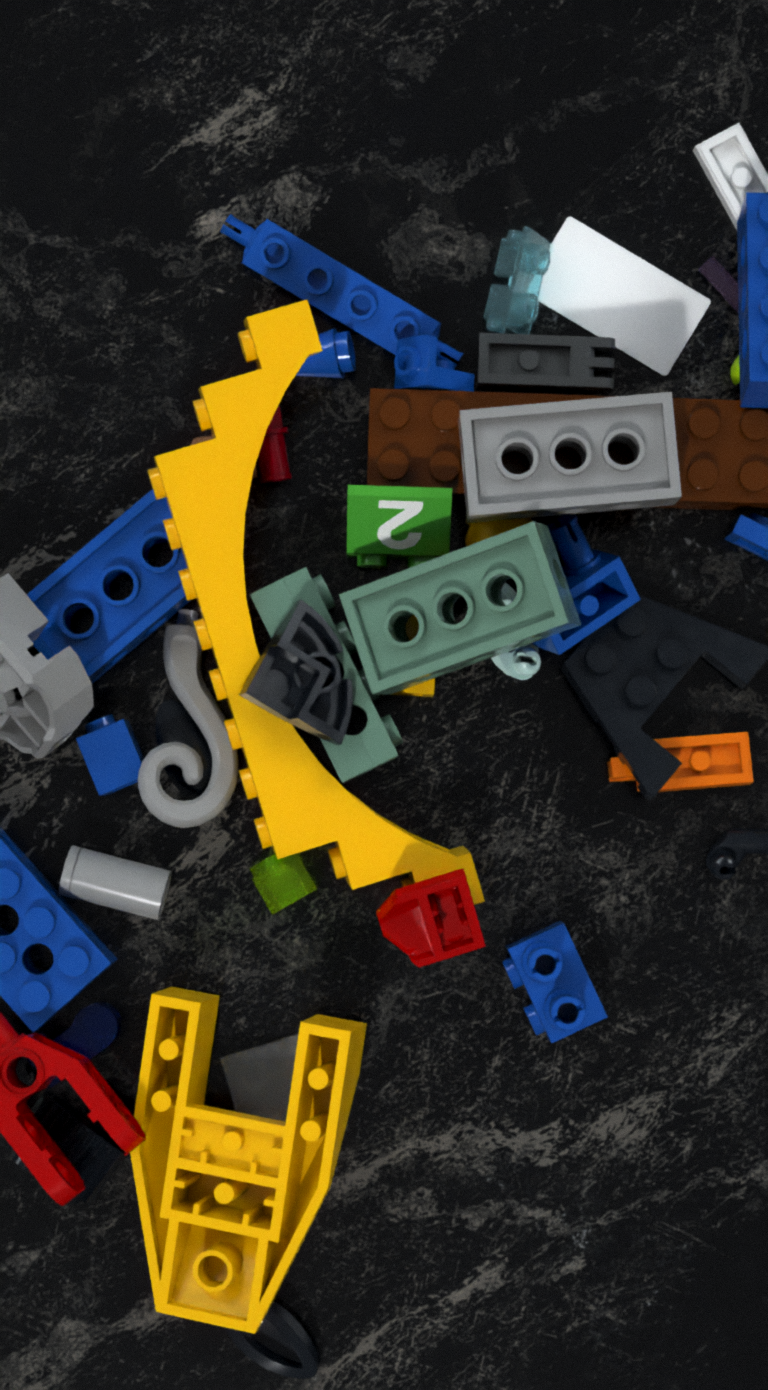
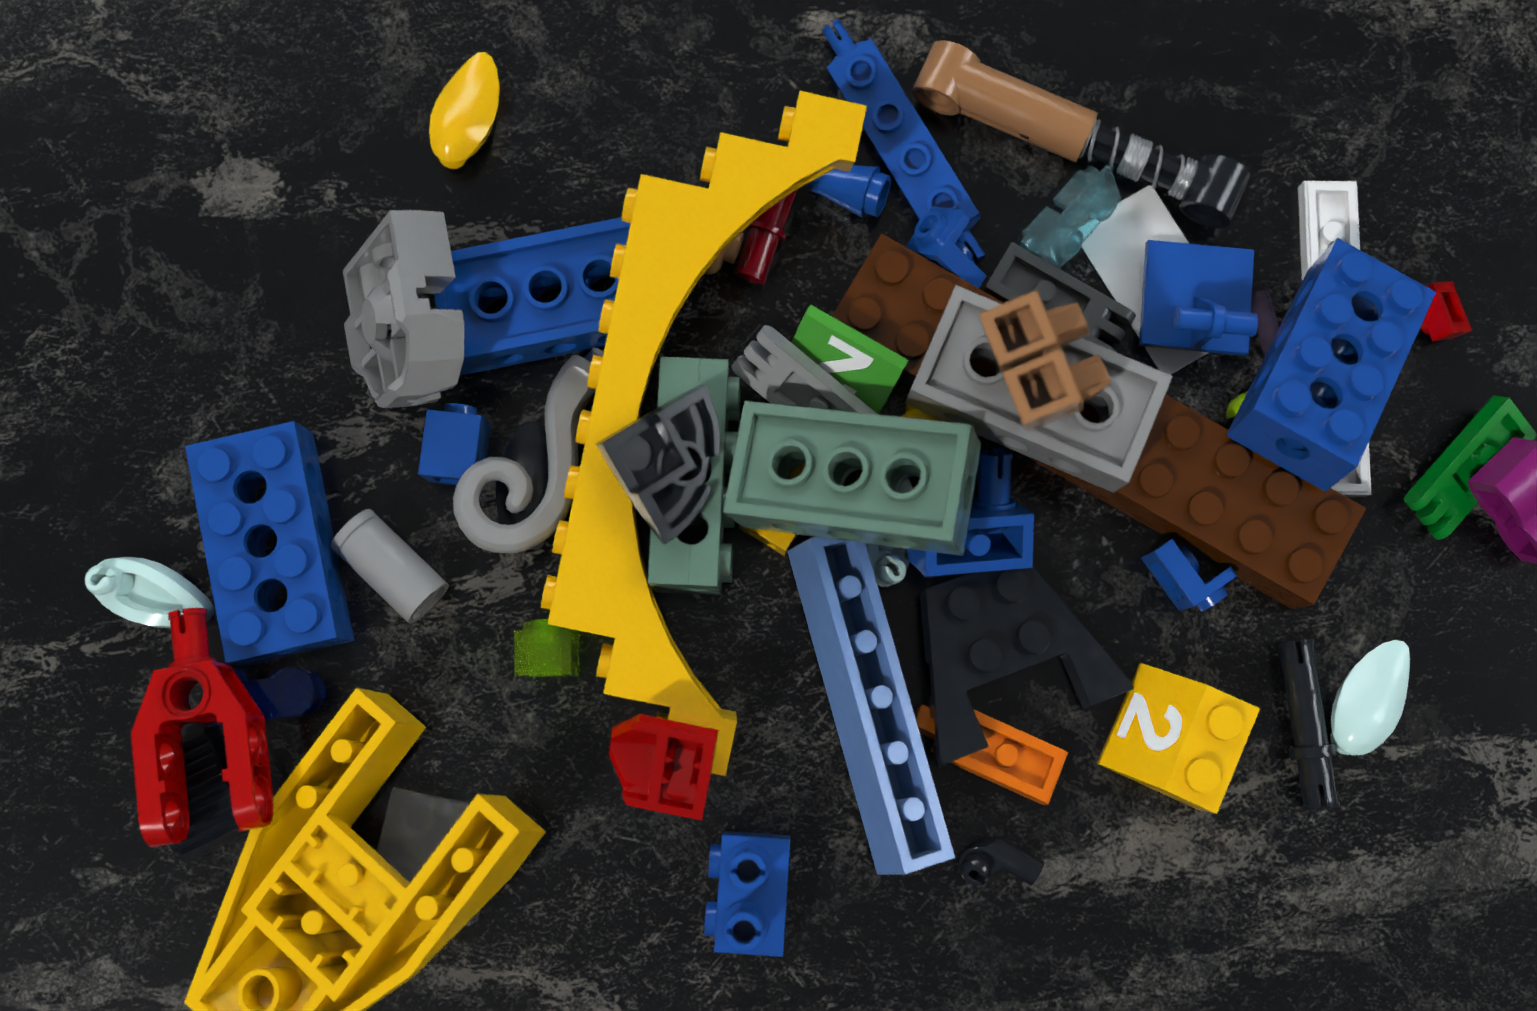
camera: 30 degrees right, 5 degrees down
(361, 217) = (958, 83): none -> piece
(369, 553) = (790, 377): none -> light grey hinge
(563, 451) = (1033, 364): none -> medium nougat hips
(569, 781) = (870, 705): none -> medium blue brick
(657, 295) = (1197, 298): none -> blue plate

